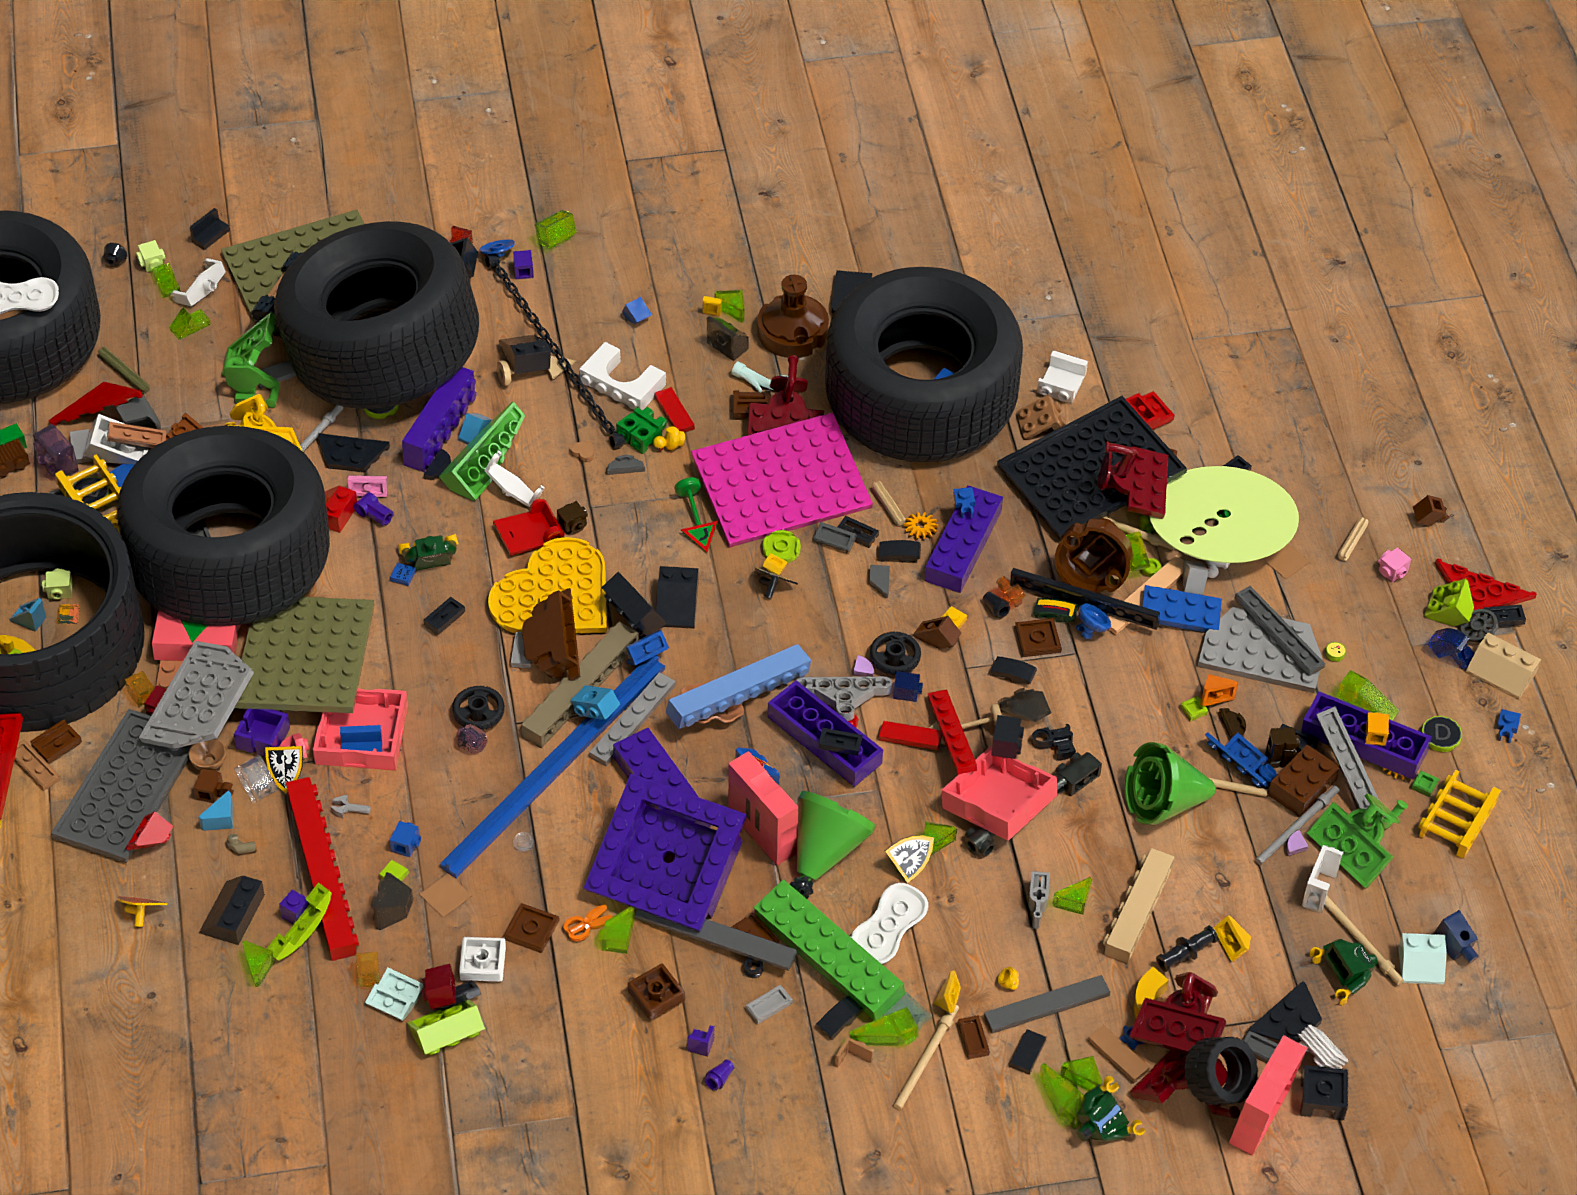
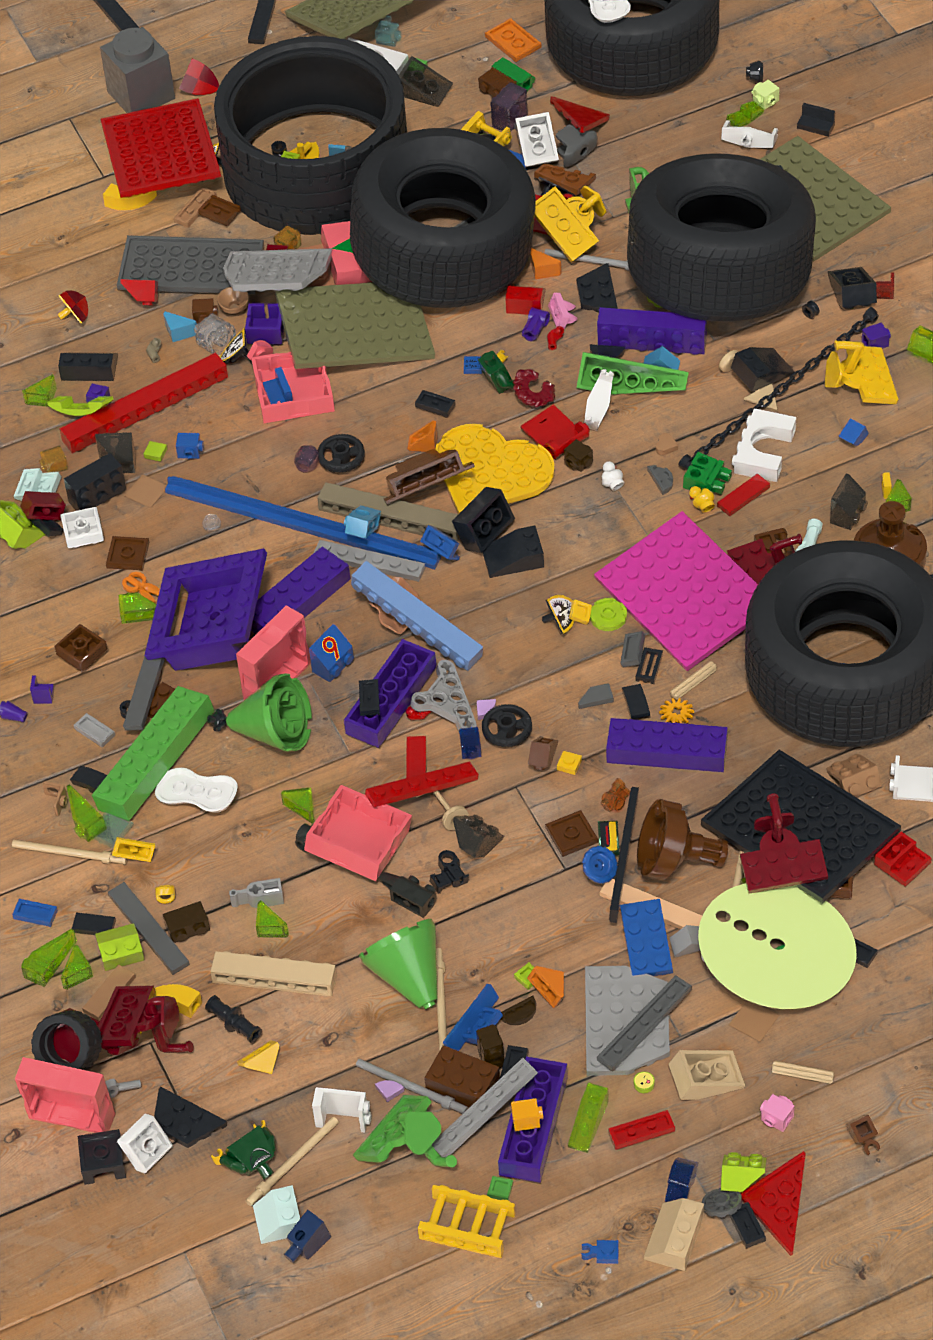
camera: 80 degrees right, 0 degrees up
(123, 369) = (628, 122): olive axle -> none
(135, 435) = (543, 146): nougat tile -> none
(187, 324) = (699, 144): clear neon green slope -> none
(347, 807) = (213, 403): light grey bar -> none
(396, 500) = (553, 336): none -> red arm
(431, 929) = (95, 483): none -> black brick
(472, 539) = (528, 397): none -> dark red piece
(491, 633) = (424, 438): none -> orange slope
(497, 247) = (888, 313): blue dish -> none
(567, 285) = (863, 370): none -> yellow plate
(613, 498) = (611, 476): none -> white animal
(702, 533) = (600, 552): green piece -> none
(911, 855) = (270, 785): shield -> none
(965, 500) = (699, 724): blue plate -> none
(973, 1037) = (99, 882): reddish brown tile -> none
(996, 604) = (595, 790): black cone -> none
(996, 1102) = (35, 912): none -> blue tile
(1007, 737) = (420, 821): black brick -> none
(1017, 670) = (521, 821): black slope -> none
(1054, 965) = (186, 922): none -> dark brown brick
(1069, 1028) = (119, 946): none -> lime slope
(1102, 1116) = (26, 986): dark green torso -> none
(1140, 557) = (701, 883): clear neon green slope -> none
(1154, 567) = (696, 904): lime tile -> none
(1262, 1047) = (143, 1103): dark grey tile -> none
(1267, 772) = (465, 1046): blue plate -> none
(1342, 605) = (705, 1073): none -> tan slope
(1388, 664) = (641, 1129): none -> red plate
(1445, 733) = (569, 1192): black tile -> none

